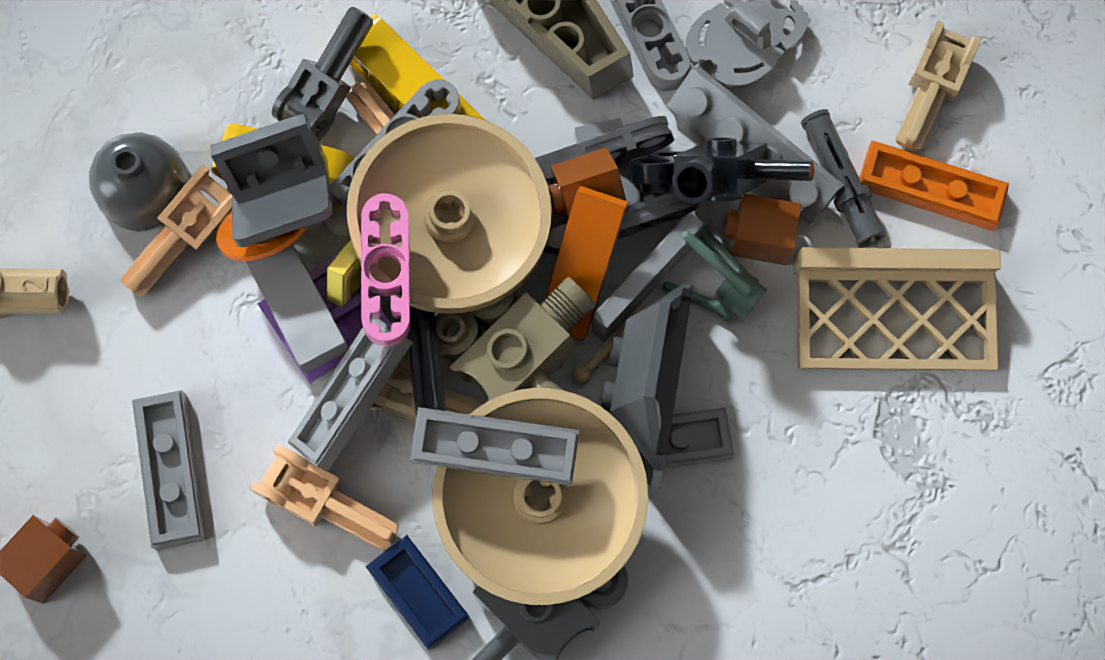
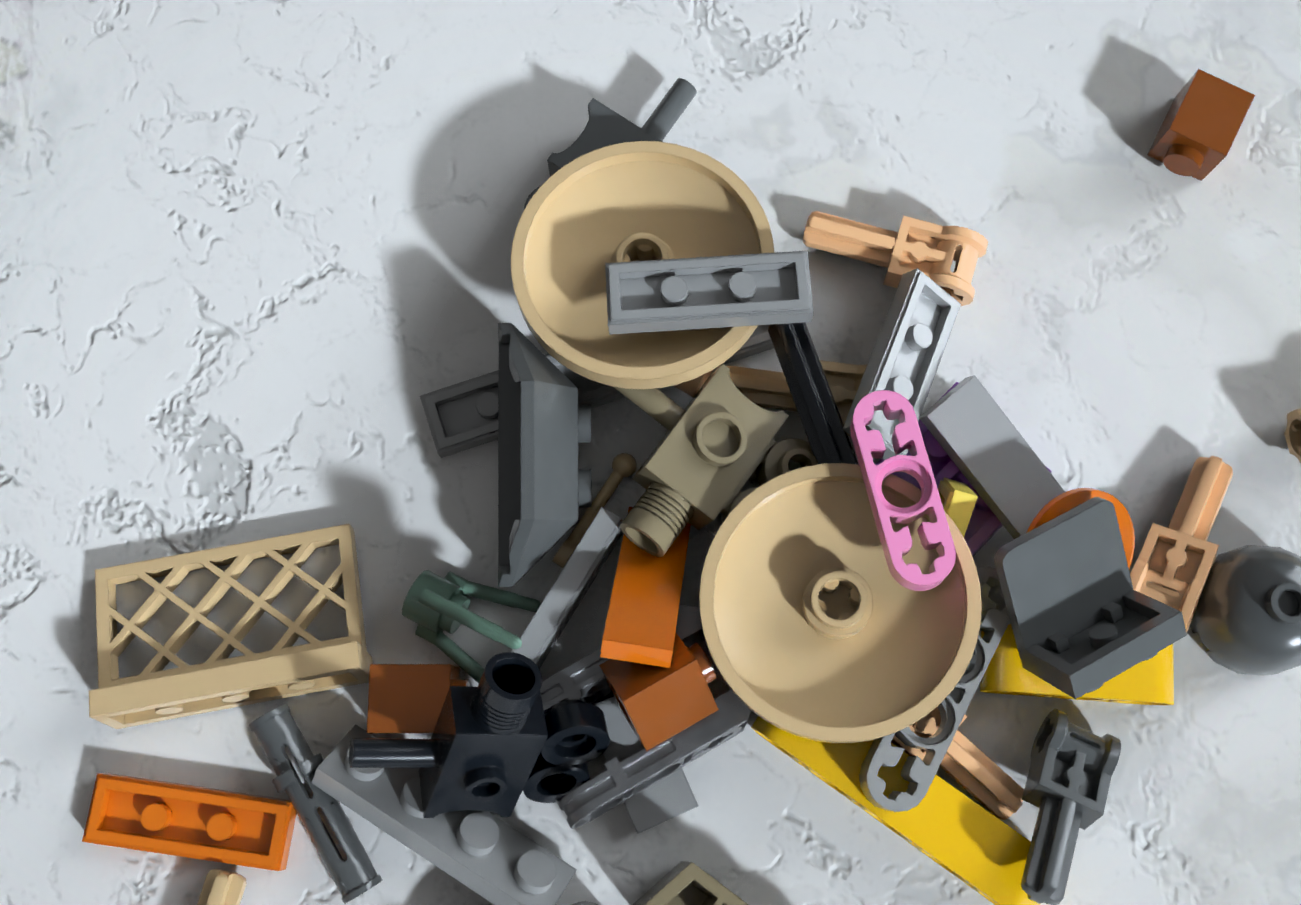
camera: 170 degrees right, 5 degrees up
(168, 470) = (1089, 260): light grey tile -> none
(418, 592) = (779, 184): dark blue tile -> none

